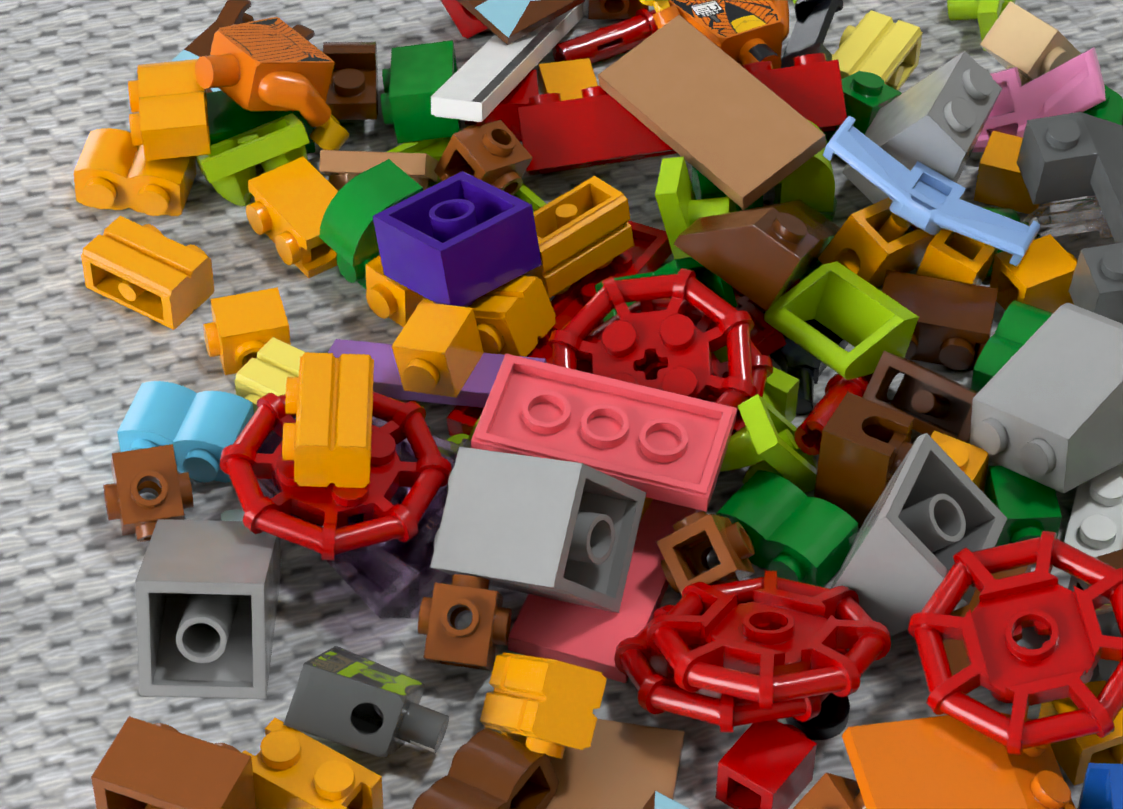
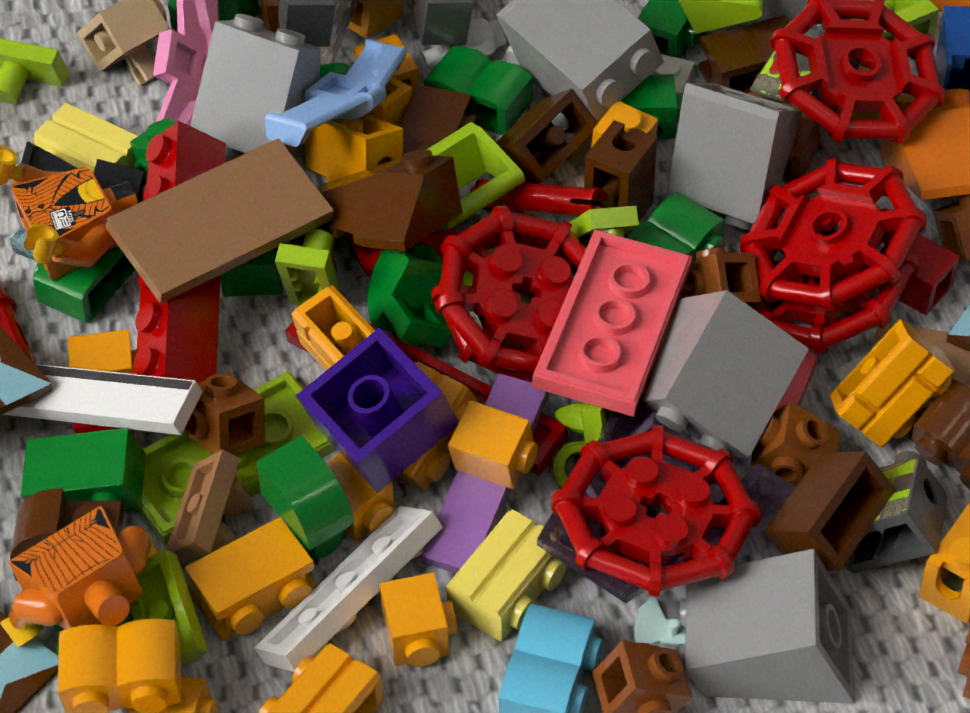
camera: 85 degrees left, 5 degrees up
(310, 295) = (348, 588): none -> white plate
(332, 420) = (643, 482): light orange brick -> none
(336, 621) = (831, 507): none -> reddish brown brick

